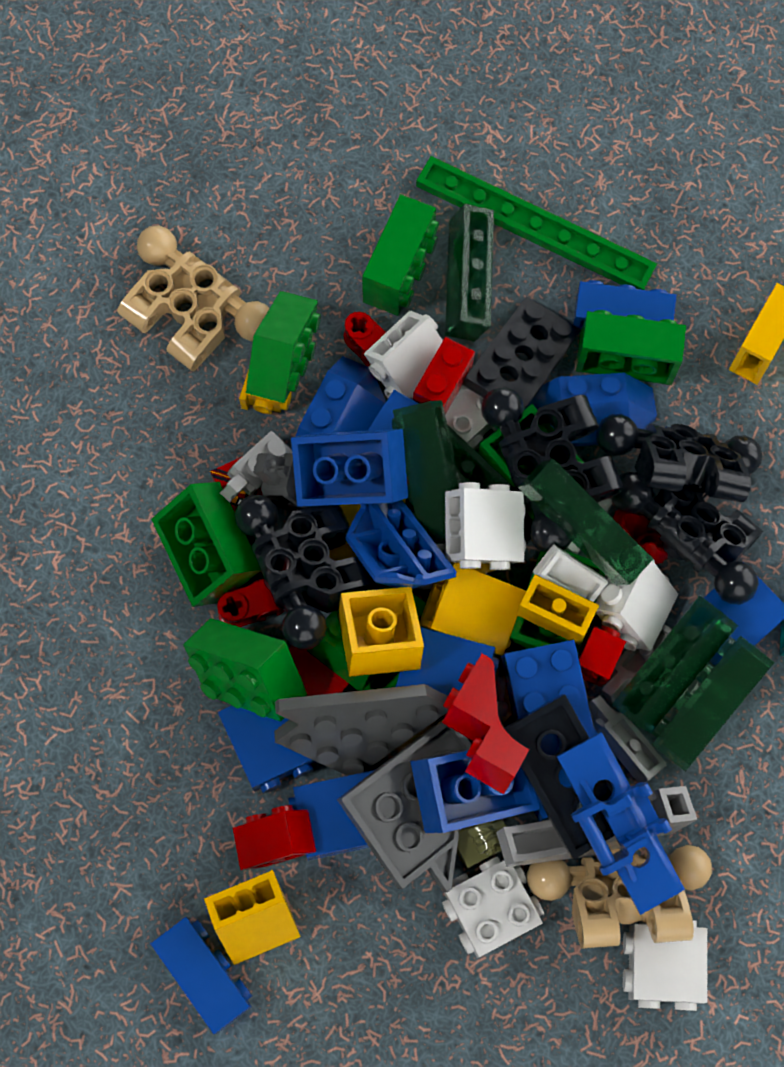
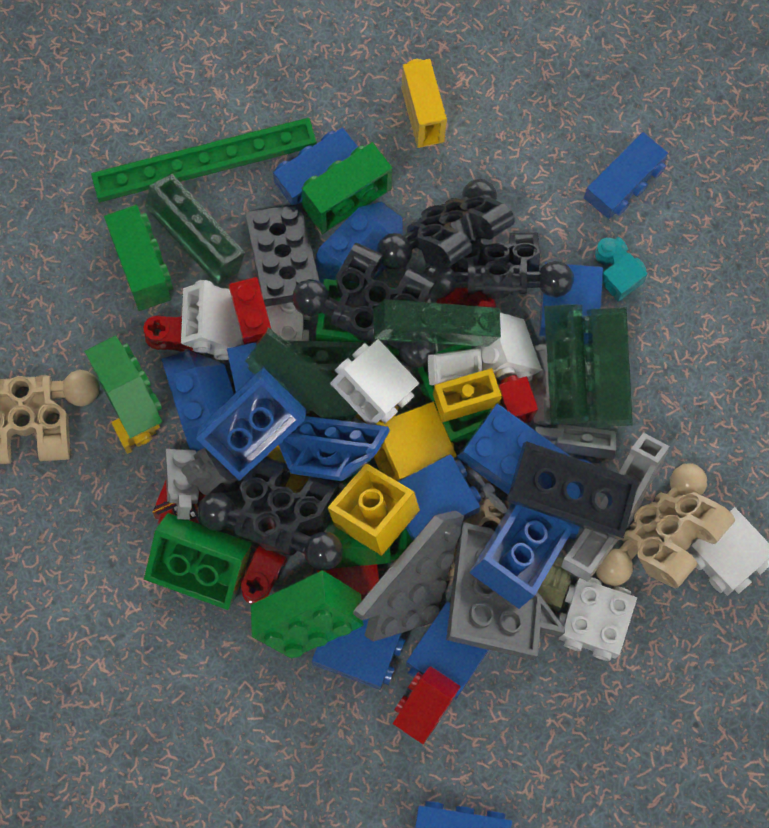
camera: 45 degrees left, 0 degrees up
(252, 917) = (462, 763): yellow brick -> none
(475, 715) = (483, 504): red arch -> none
(629, 818) = (635, 482): blue piece -> none

